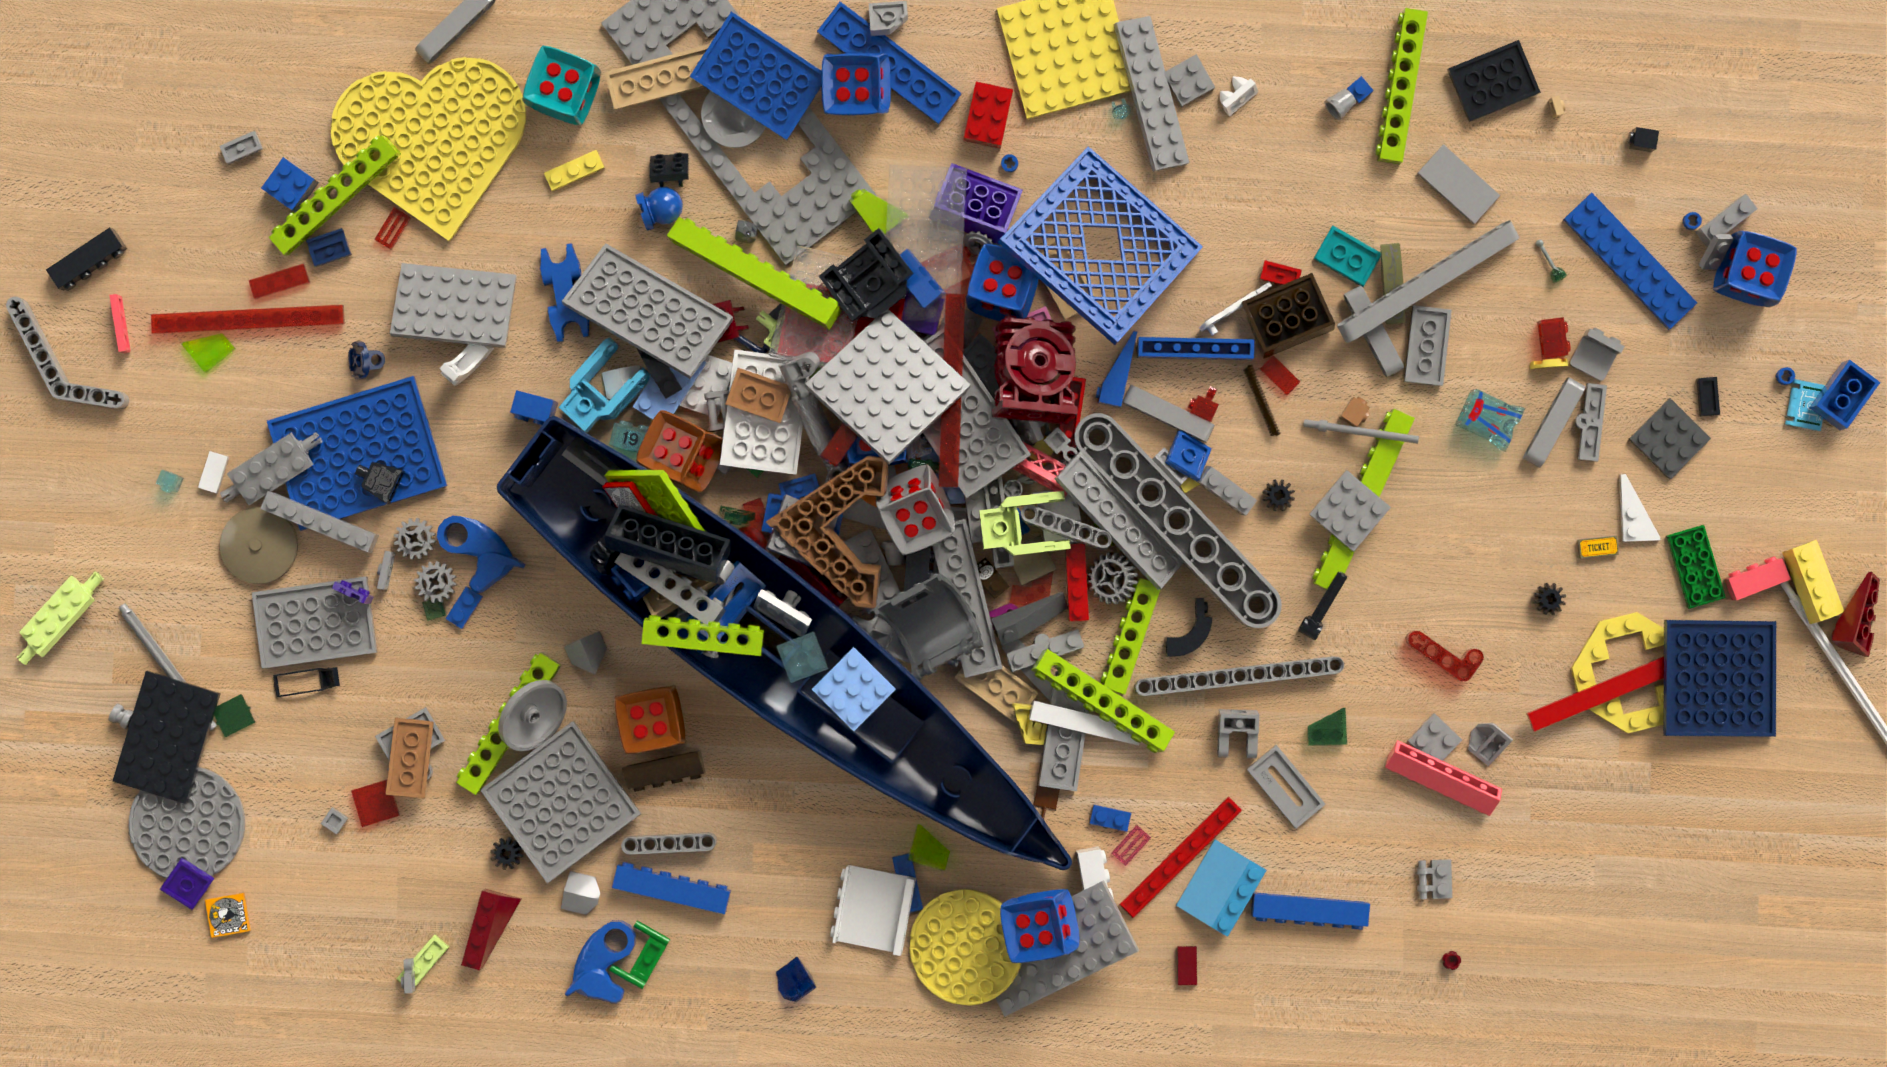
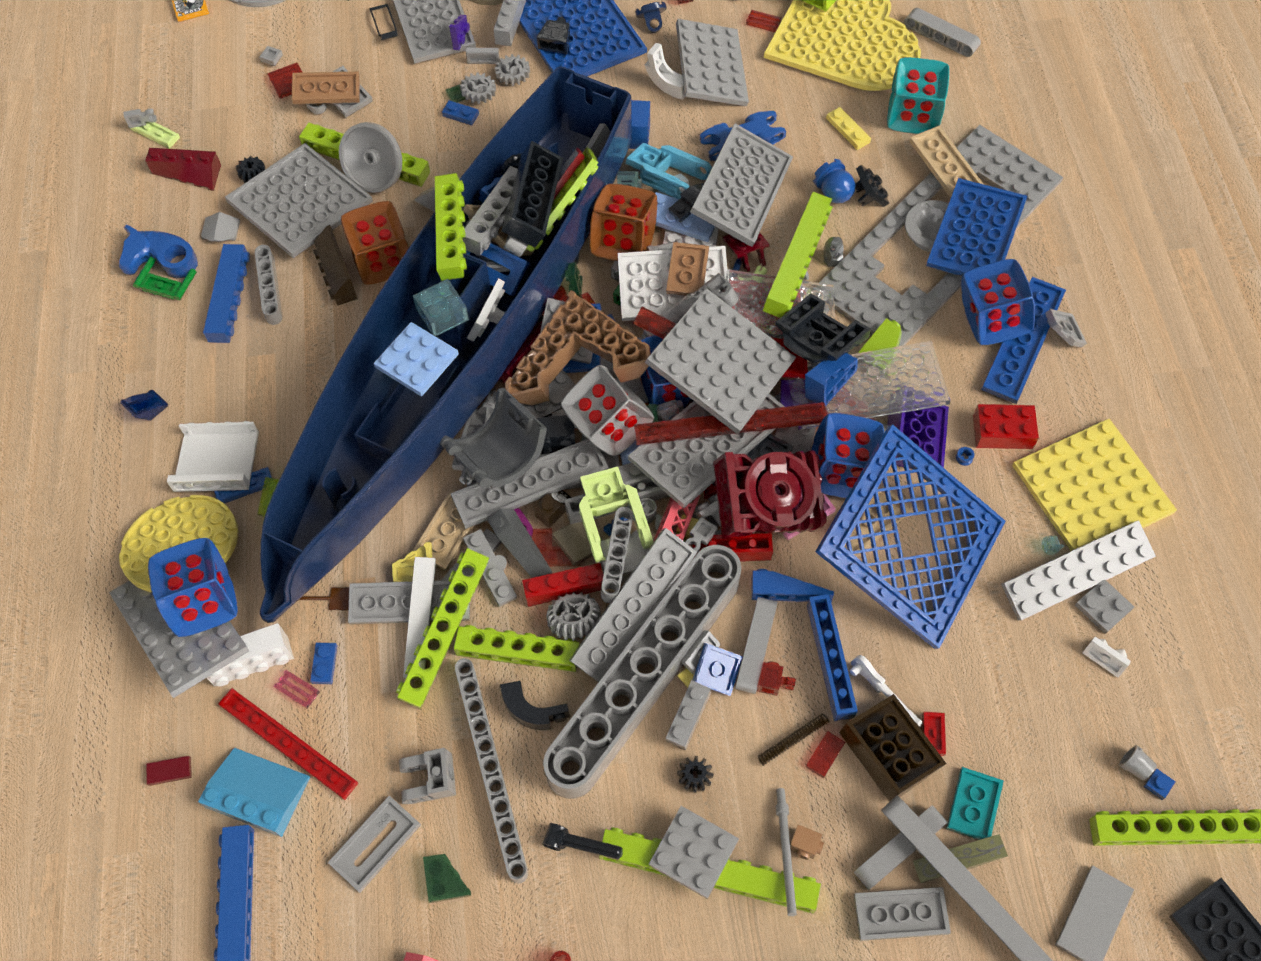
camera: 85 degrees right, 25 degrees down
(483, 542) = (495, 119): blue animal -> none

